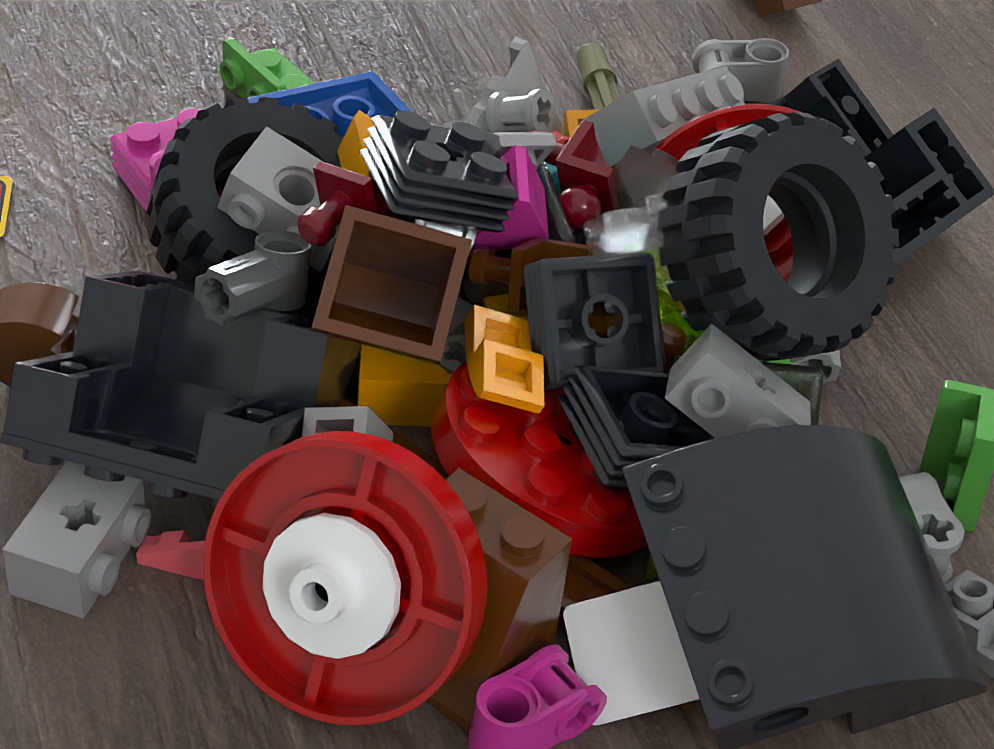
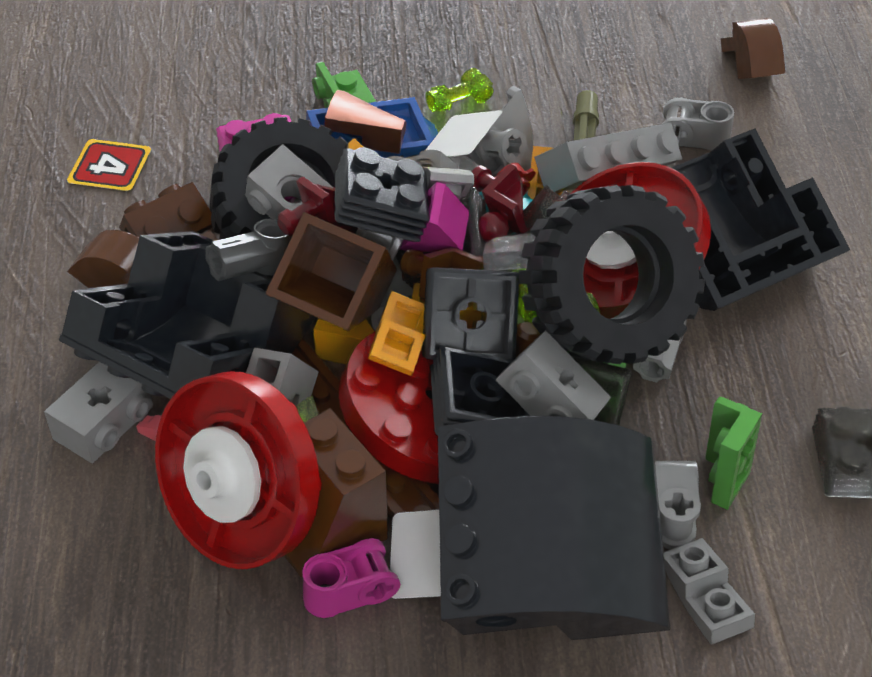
camera: 20 degrees right, 5 degrees up
(81, 251) = (174, 211): none -> reddish brown bracket
(326, 99) = (356, 117): none -> slope
(435, 51) = (472, 84): none -> clear neon green bar
(470, 99) = (463, 133): none -> white sticker

